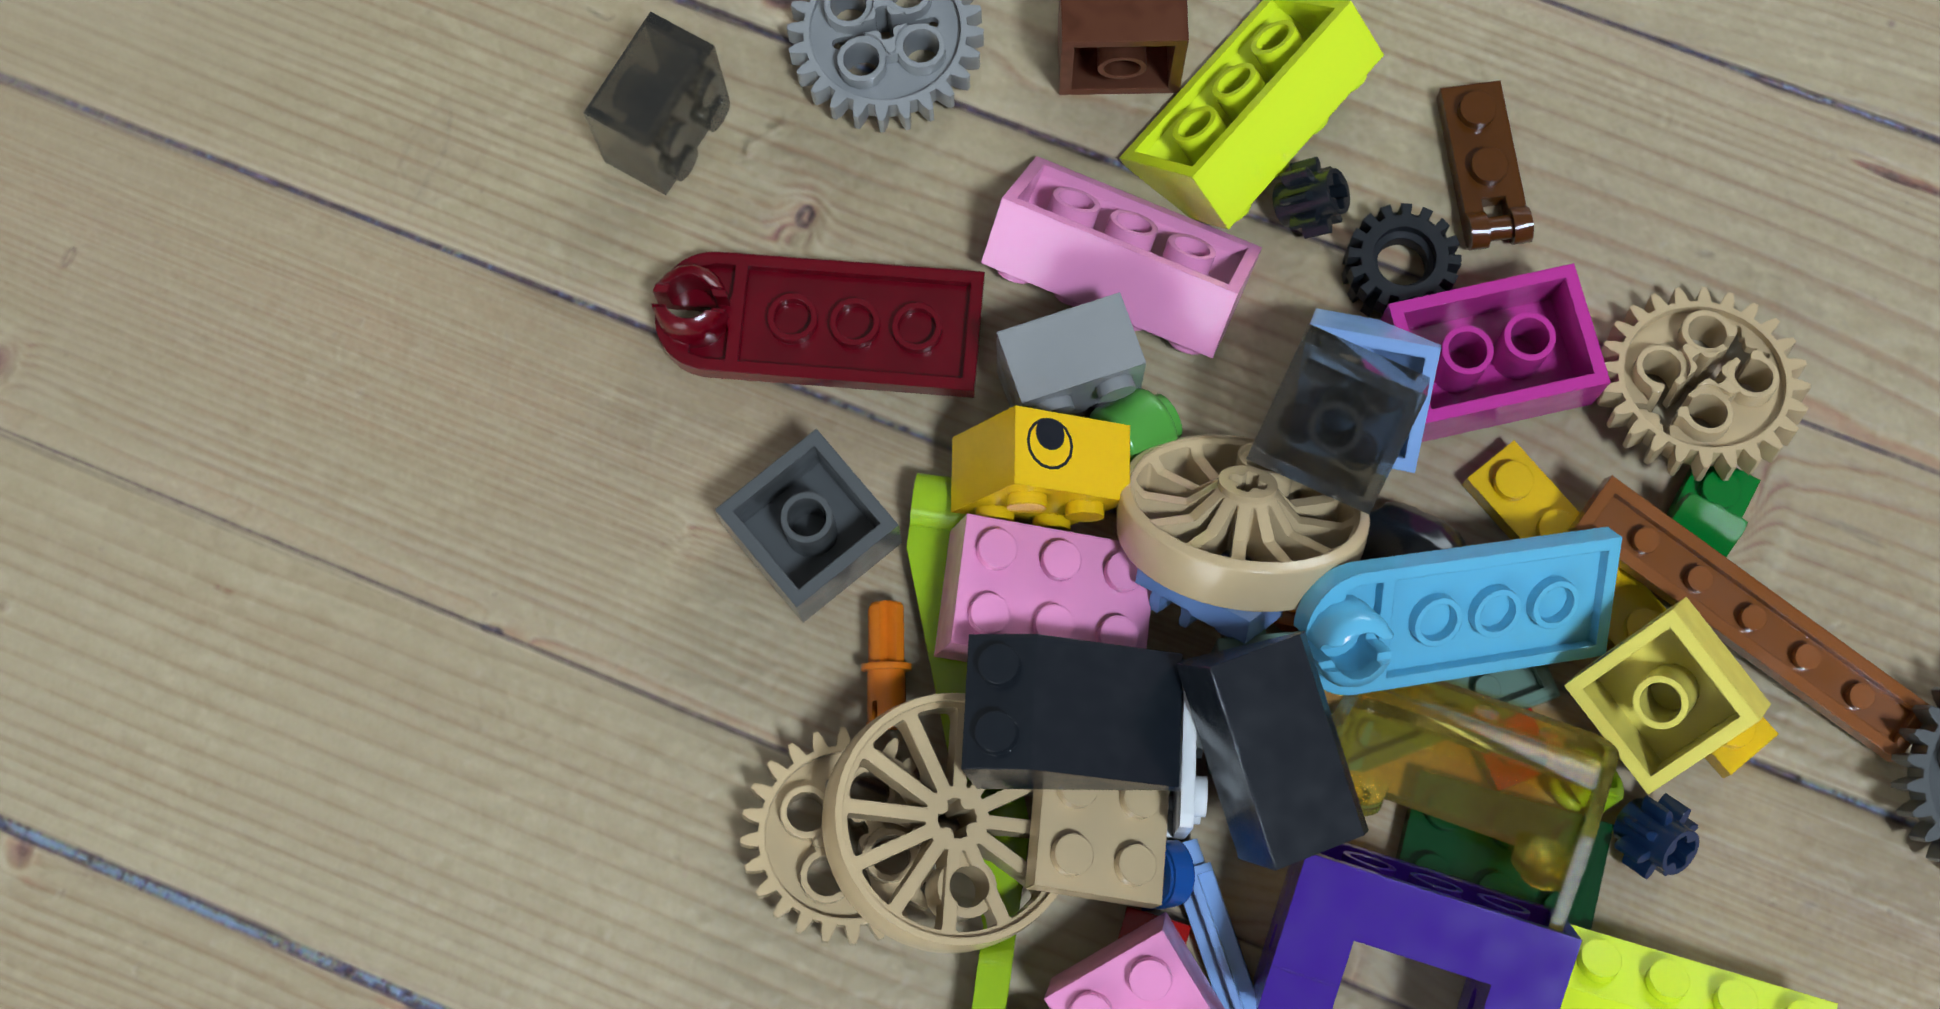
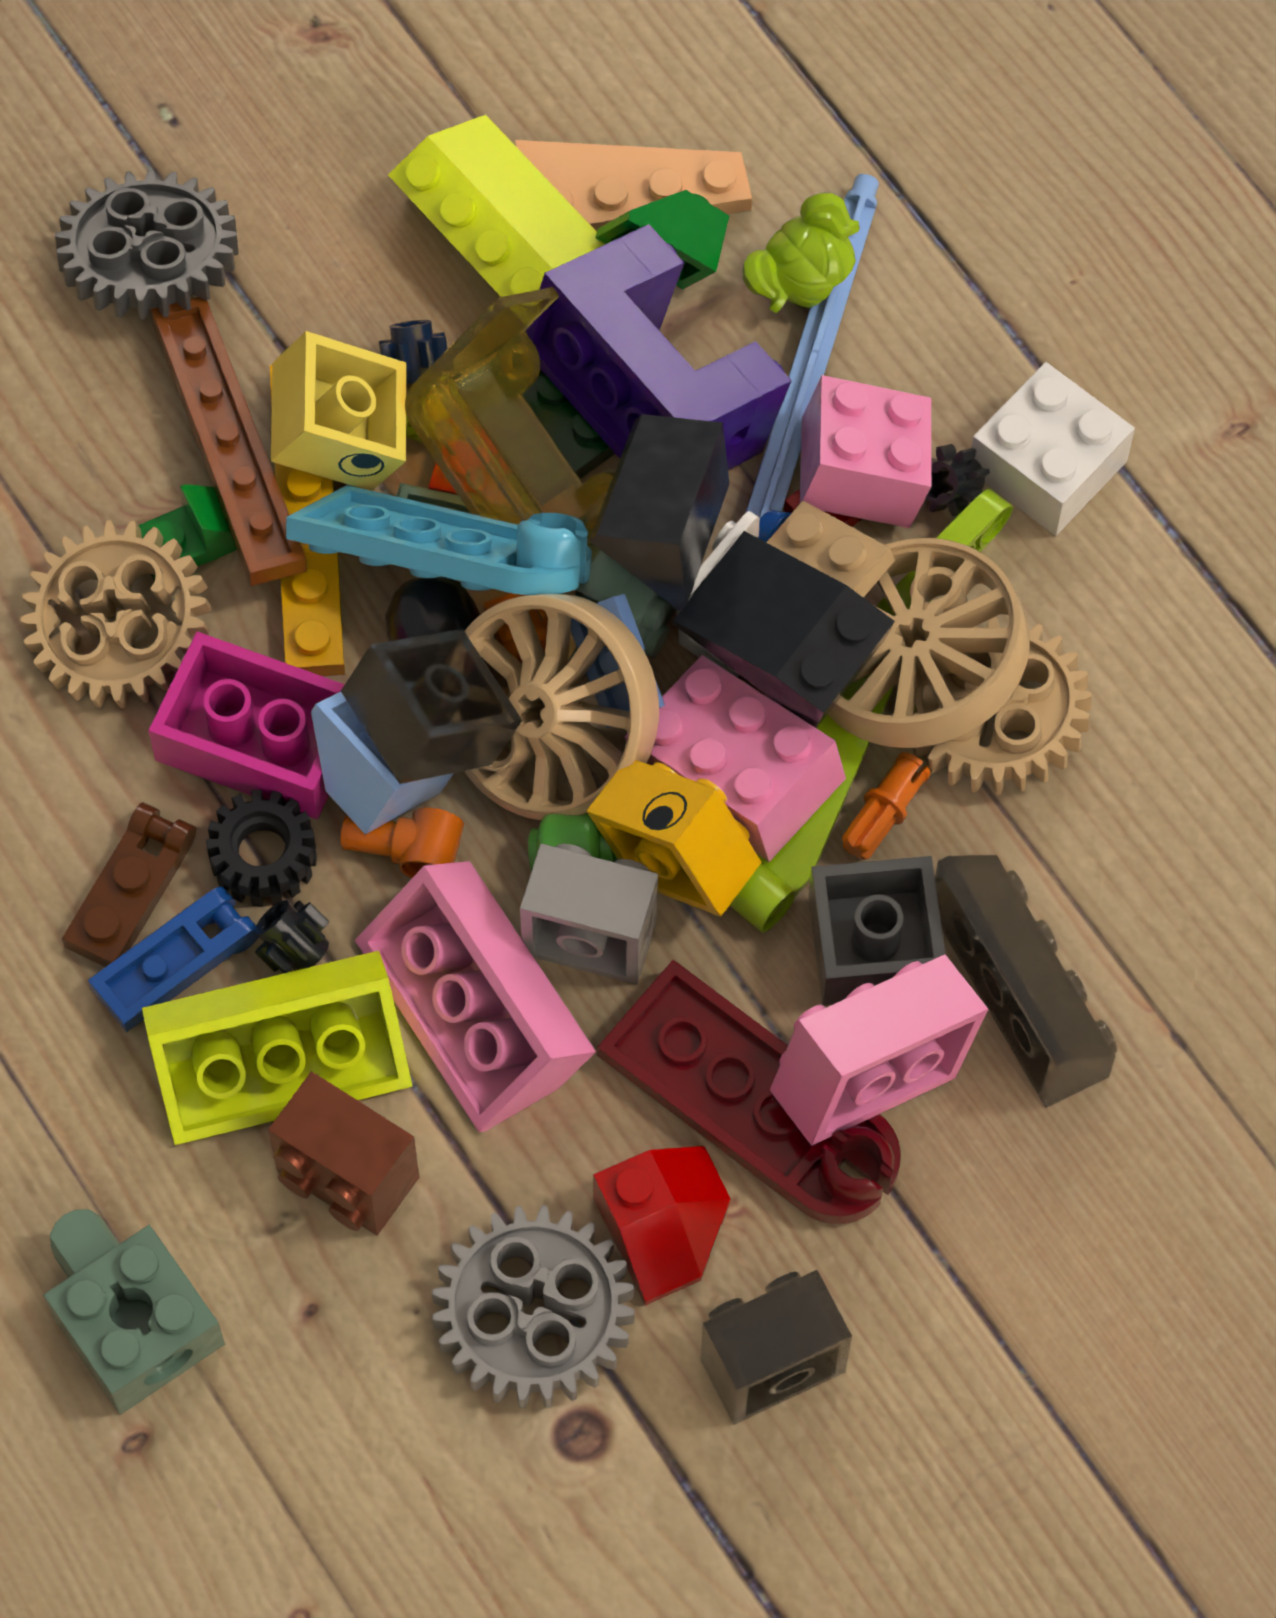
camera: 150 degrees left, 10 degrees down
(653, 569) = (1021, 977): none -> clear smoke slope
(728, 394) = (877, 1048): none -> bright pink brick
(834, 177) = (663, 1216): none -> red slope
(1261, 356) = (413, 842): none -> orange pin
(1397, 122) = (173, 958): none -> blue plate

